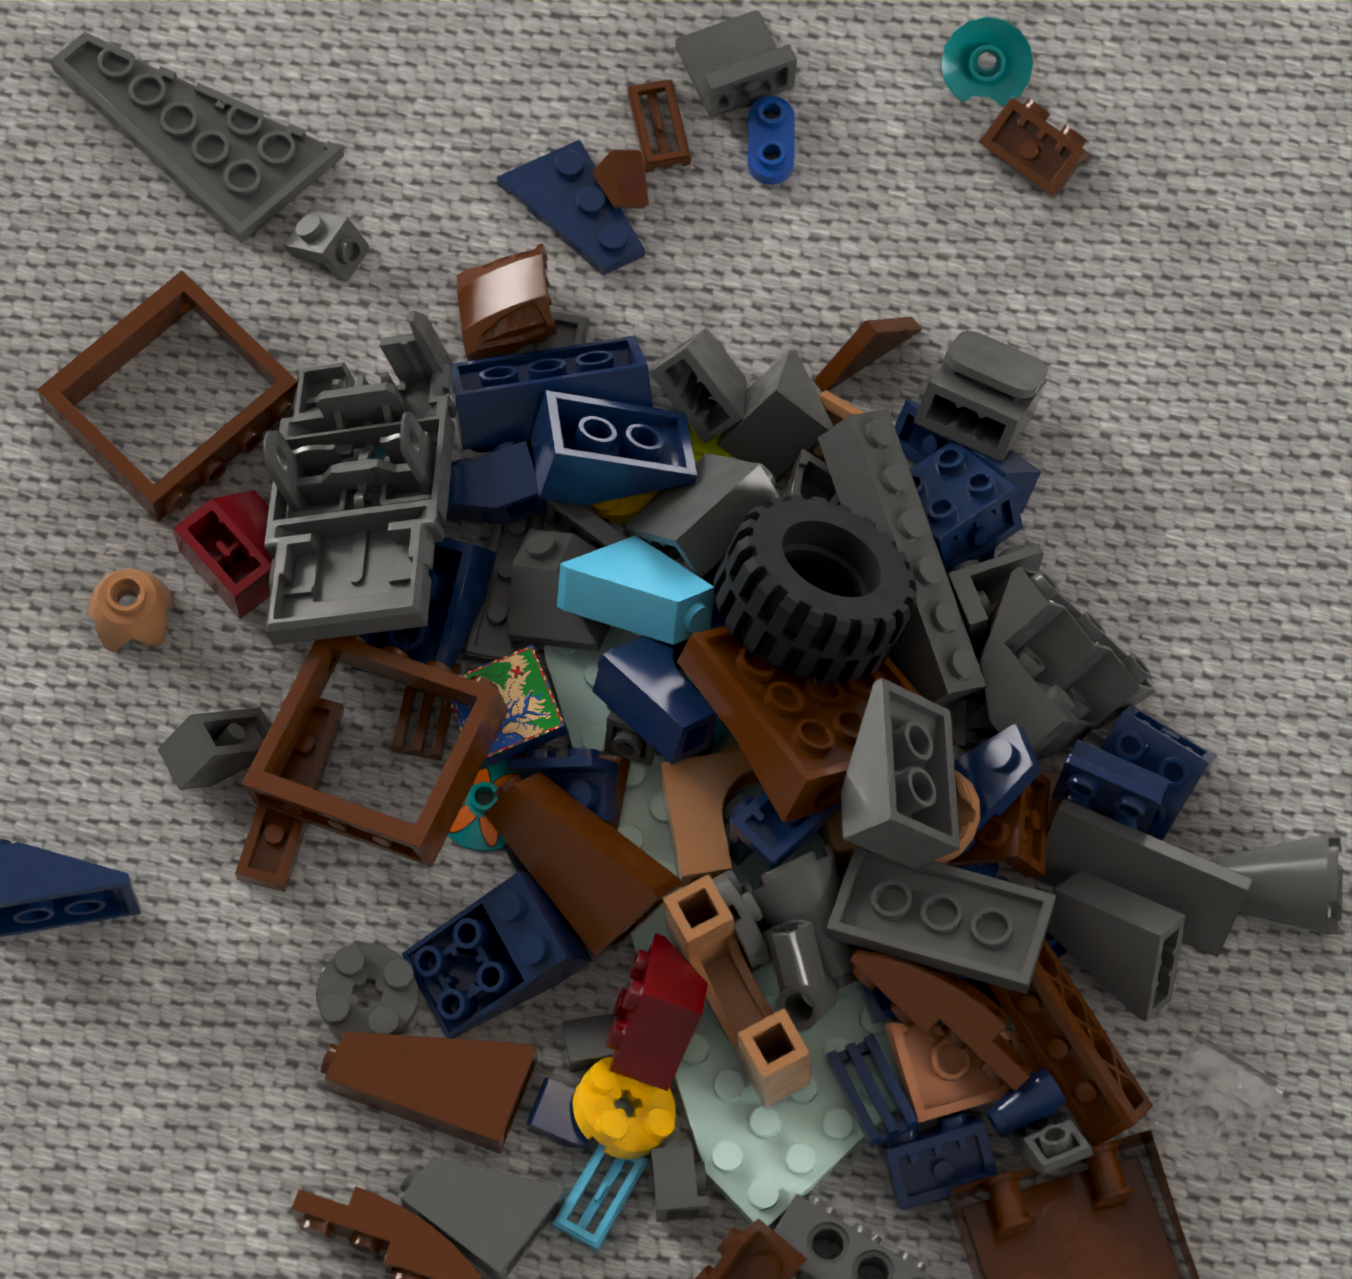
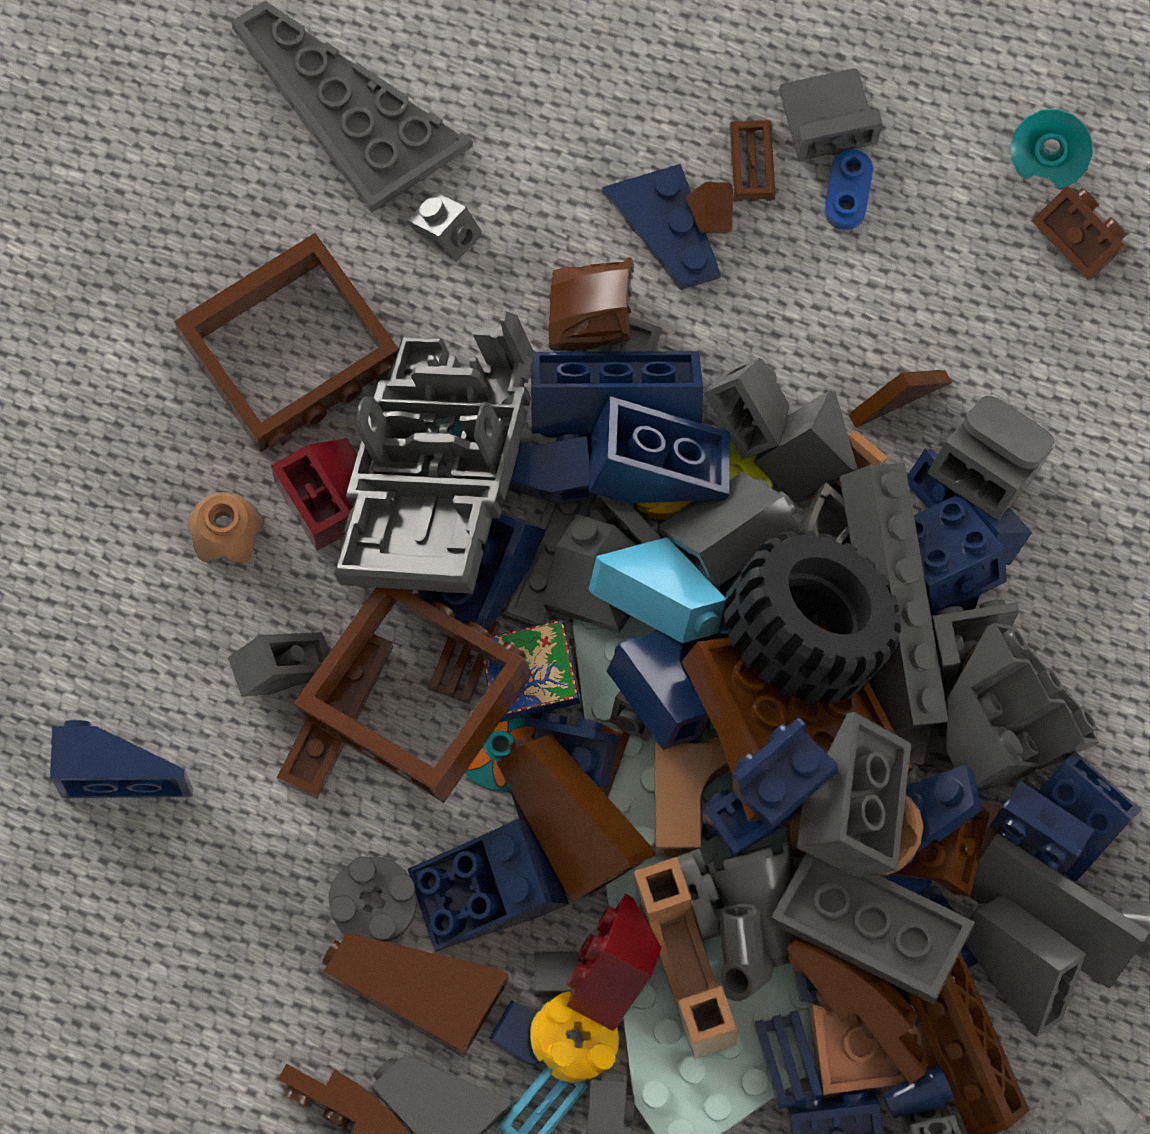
camera: 10 degrees right, 5 degrees up
(813, 756) = (782, 773): none -> dark blue bracket

